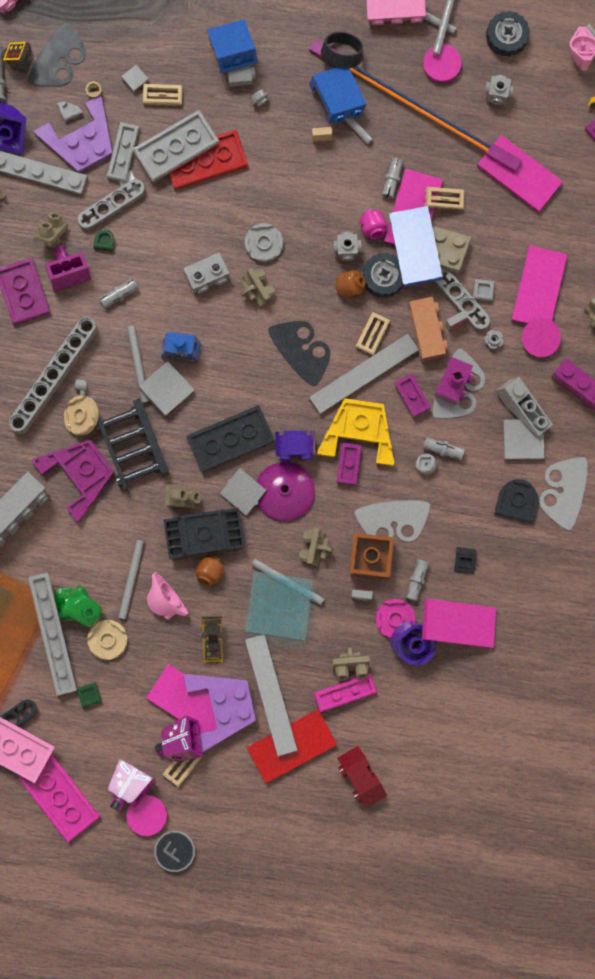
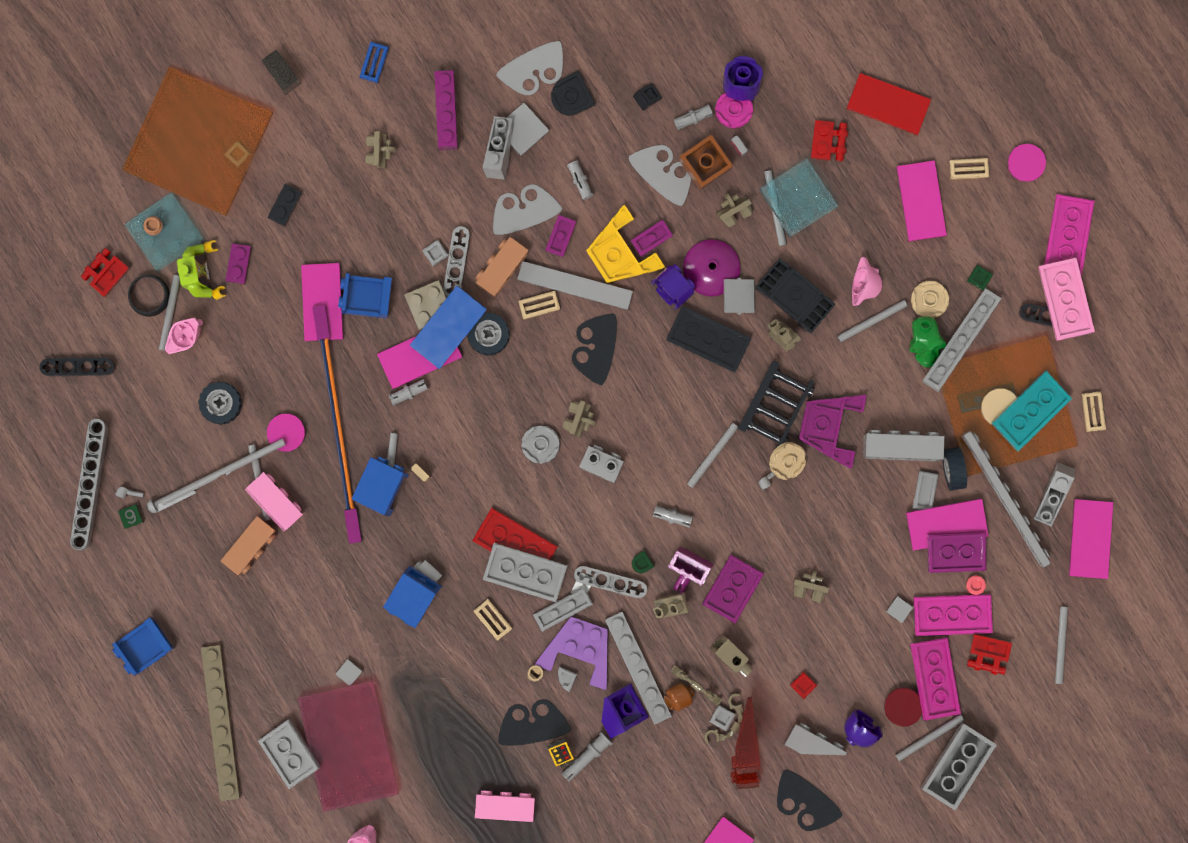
camera: 125 degrees left, 5 degrees up
(53, 366) = (785, 505): light grey beam -> none
(129, 786) = (1019, 191): torso -> none
(135, 78) = (498, 651): light grey tile -> none
(166, 388) = (713, 418): light grey tile -> none
(174, 851) = (1033, 121): black tile -> none
(180, 346) = (674, 434): blue torso -> none
(181, 740) = (955, 182): magenta torso -> none
(209, 571) = (817, 269): dark orange head -> none
(212, 639) = (863, 224): clear smoke slope -> none
(230, 706) = (900, 169): medium lavender wing -> none
(259, 98) = (433, 544): light grey plate -> none
(271, 695) = (866, 148): light grey tile -> none
(308, 667) = (822, 141): none -> red plate
(341, 60) = (356, 507): black tyre -> none
(344, 693) = (818, 98): dark pink tile -> none
(347, 253) = (494, 385): light grey brick -> none
(350, 283) = (517, 352): dark orange head -> none
(351, 662) = (802, 116): dark tan hips -> none
(365, 782) = (868, 34): dark red brick -> none
(373, 224) = (457, 374): dark pink head -> none
(426, 464) = (602, 183): light grey tile -> none
(428, 198) = (401, 351): tan tile -> none
(454, 380) = (524, 214): magenta brick -> none
(456, 320) = (477, 252): light grey tile -> none
(459, 623) = (700, 58): dark pink tile -> none
(494, 344) = (466, 218): light grey plate -> none
(496, 207) = (365, 296): none -> blue panel
(499, 90) = (275, 377): light grey brick -> none
(539, 285) = (397, 214): dark pink tile -> none
(541, 337) = (435, 180): dark pink tile -> none

